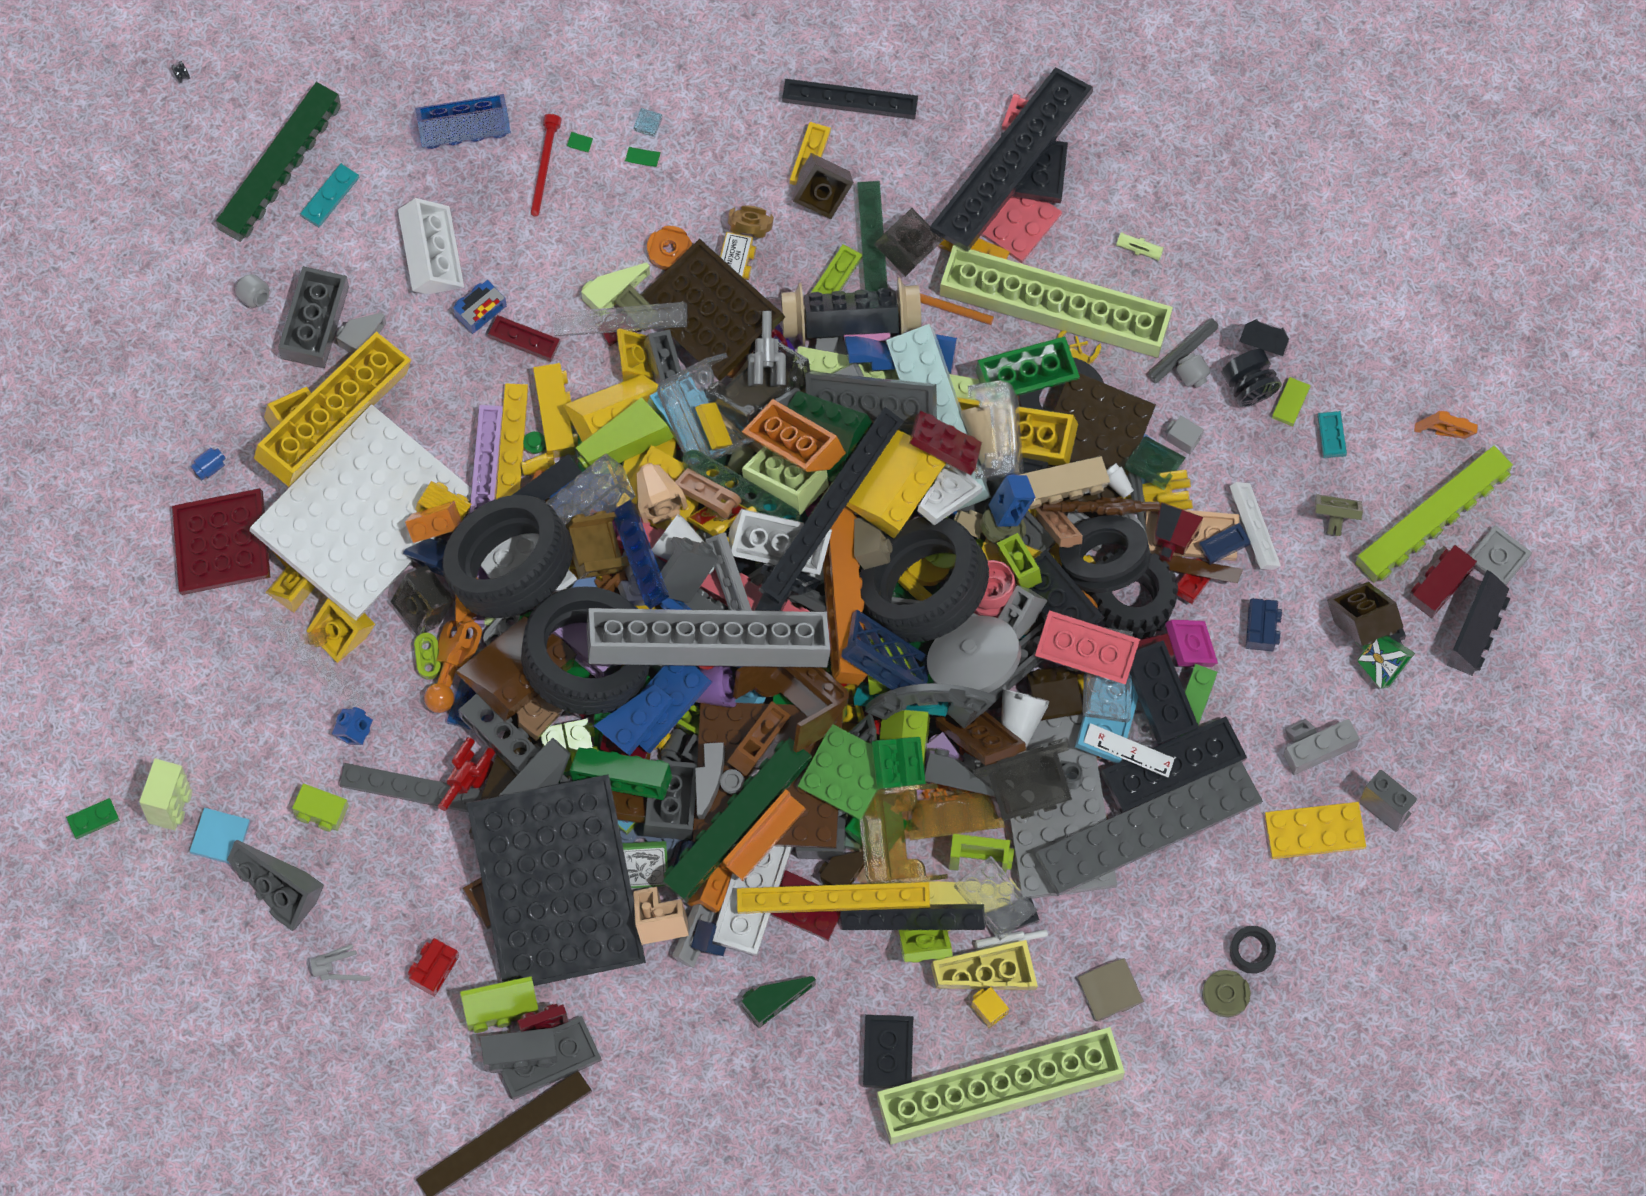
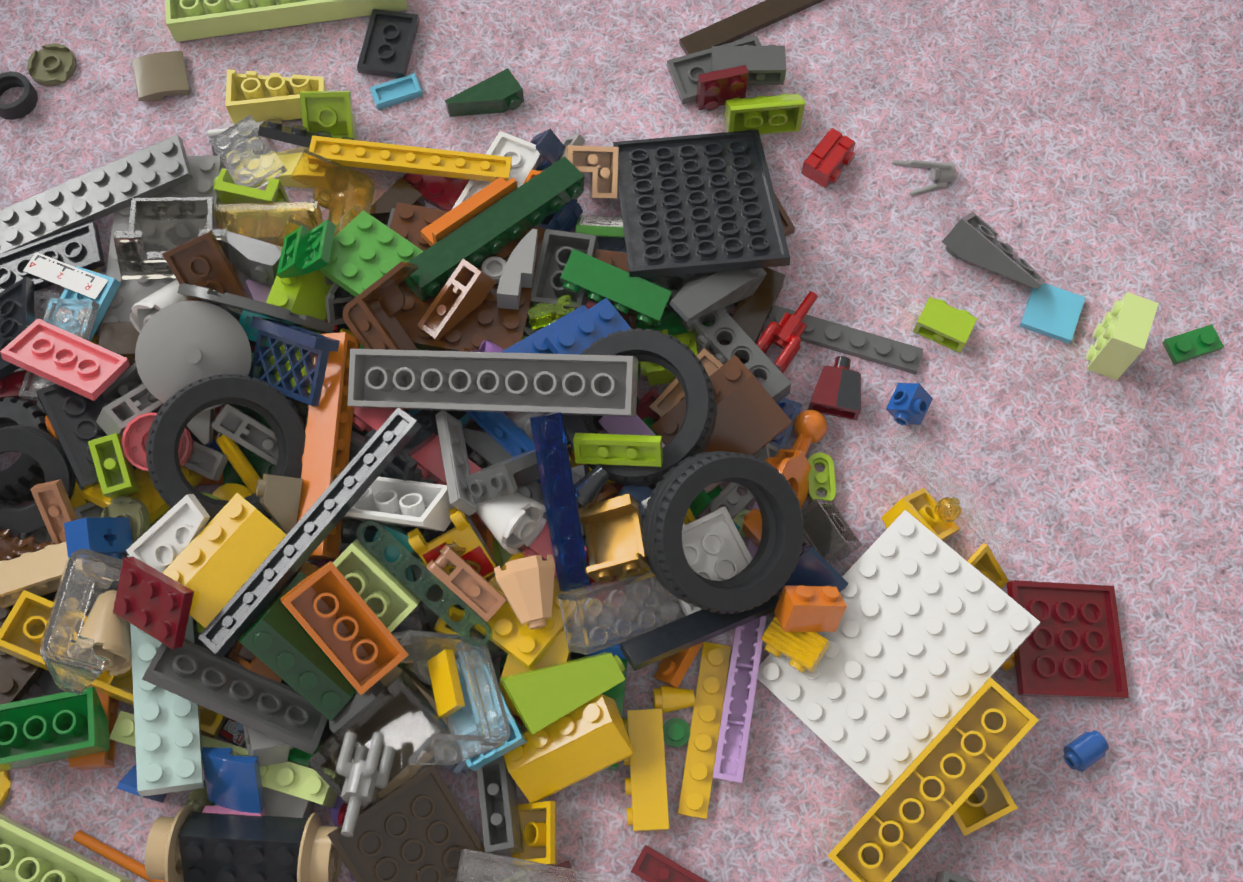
camera: 170 degrees left, 0 degrees up
(416, 734) = (838, 391): none -> dark red torso
(597, 598) = (618, 449): none -> lime plate
(619, 574) = (591, 485): none -> black cone
(680, 746) = (545, 314): none -> clear neon green plate
(870, 1000) = (396, 91): none -> medium azure tile
(989, 1006) = (279, 62): yellow brick -> none

